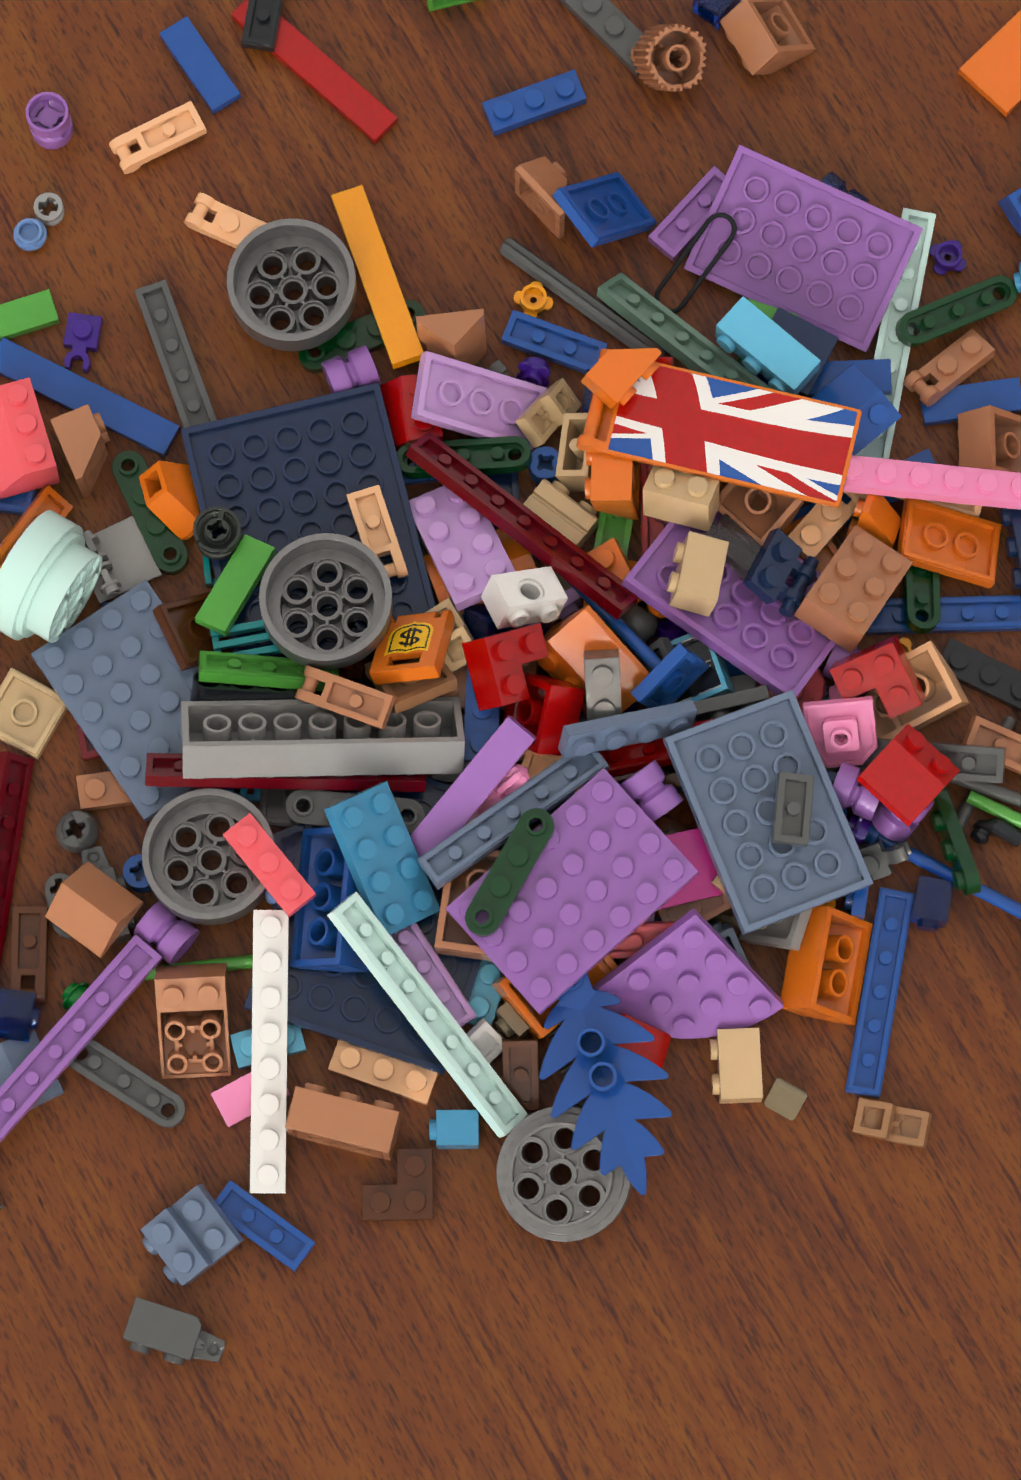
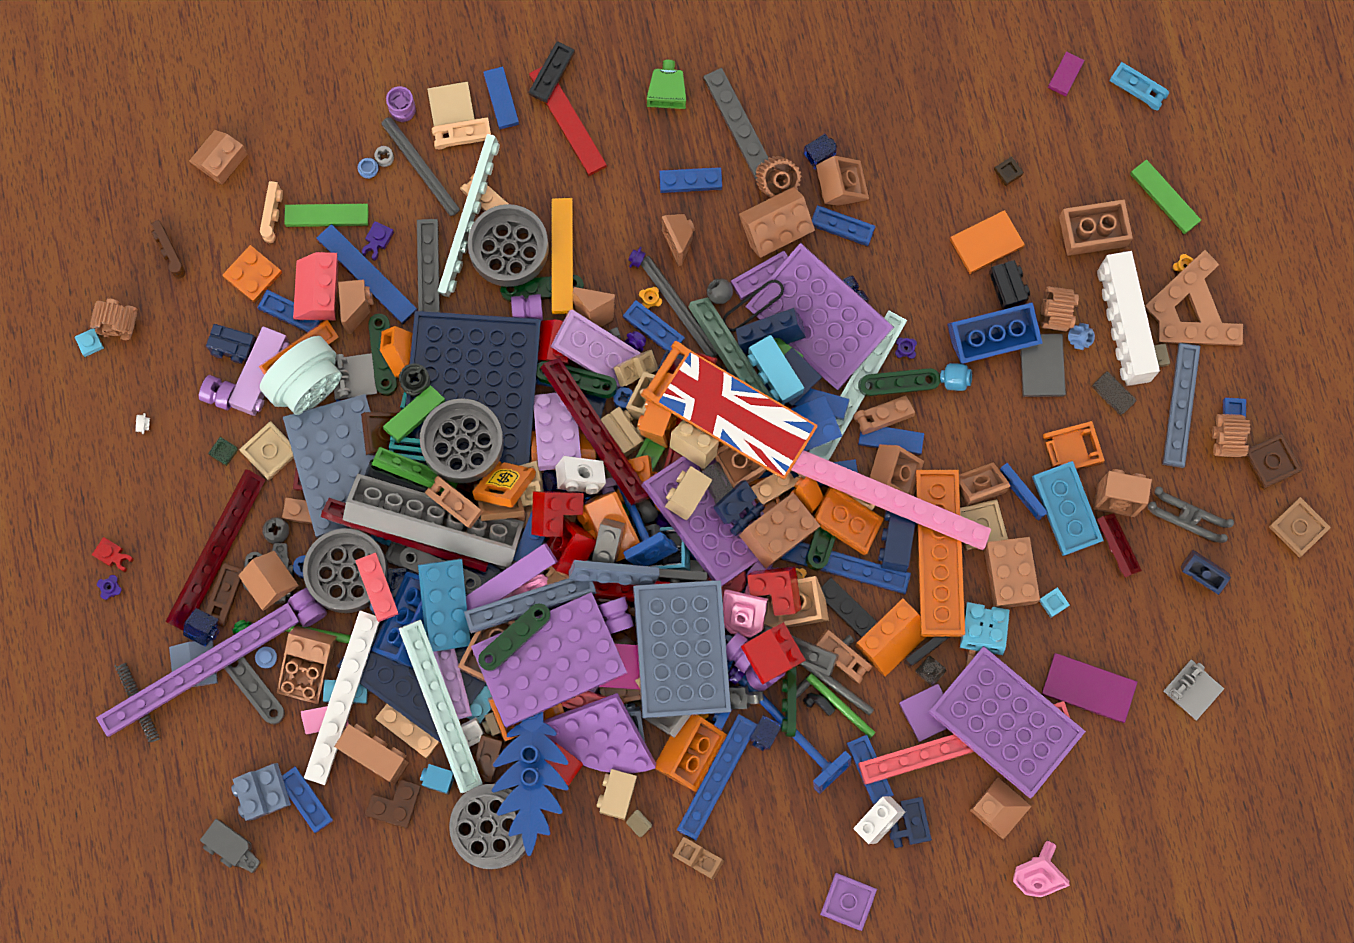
camera: 15 degrees right, 0 degrees up
(110, 207) = (420, 166): none -> dark grey axle
(125, 97) = (450, 104): none -> tan tile
(127, 1029) = (266, 657): none -> medium blue plate
(214, 272) = (471, 207): none -> light aqua plate
(376, 527) = (508, 407): light nougat plate -> none
(492, 245) = (636, 257): none -> dark purple plate
(604, 209) = (708, 256): blue tile -> none
(618, 371) = (678, 358): orange slope -> none
(637, 257) = (720, 291): none -> dark grey piece
(690, 125) = (777, 222): none -> nougat brick
(754, 278) = (783, 325): none -> dark blue arch
(789, 102) = (842, 225): none -> blue tile
(792, 809) = (695, 652): dark grey plate -> none

